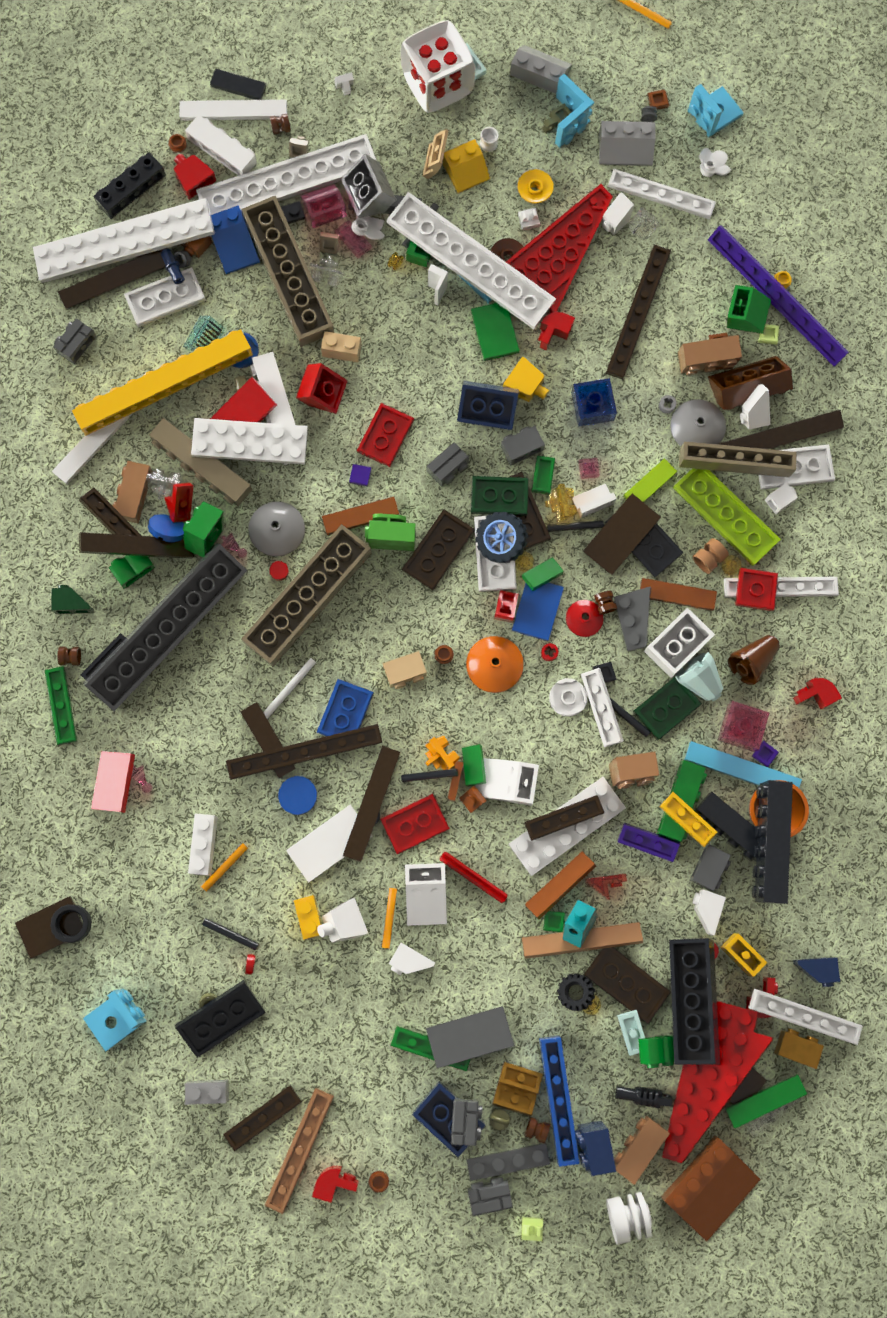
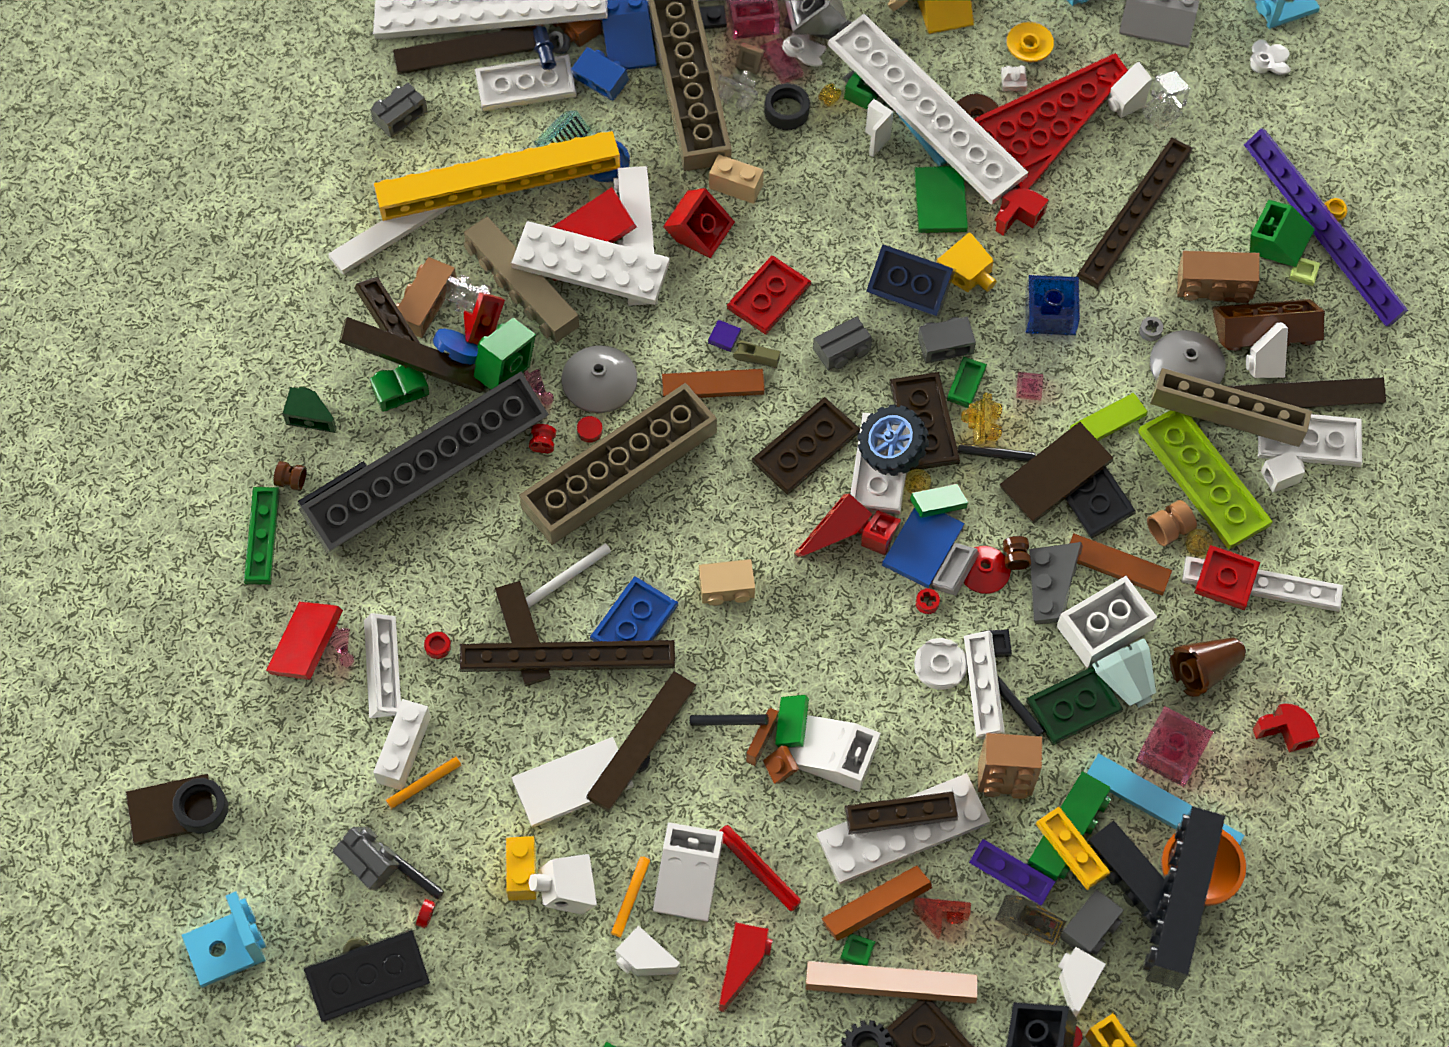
camera: 15 degrees right, 15 degrees down
(173, 786) = (382, 665): none -> white slope
(198, 934) = (366, 857): none -> dark grey brick
(209, 762) = (437, 645): none -> red tile
(220, 279) = (600, 73): none -> blue brick
(246, 586) = (542, 438): none -> red wheel
(297, 795) = (544, 711): blue tile -> none
(369, 290) = (789, 91): none -> black tyre
(390, 533) = (748, 408): bright green brick -> none
(391, 485) = (761, 355): none -> olive bar
(414, 824) = (694, 782): red tile -> none
(438, 756) = (746, 698): light orange hips -> none
(444, 654) = (784, 575): dark orange plate -> none
(475, 608) = (842, 521): none -> red slope
(478, 945) = (745, 958): none -> red slope
(490, 676) = (849, 616): orange dish -> none
(499, 495) = (902, 387): dark green tile -> none
(564, 623) = (955, 569): none -> light grey tile
(581, 920) = (897, 947): teal torso -> none
(593, 500) = (1028, 426): white panel -> none
(647, 203) = (1172, 85): none -> clear panel
(661, 194) = (1198, 82): white tile -> none
(668, 875) = (1030, 919): none -> clear smoke slope
(765, 754) = (1199, 792): dark purple tile -> none

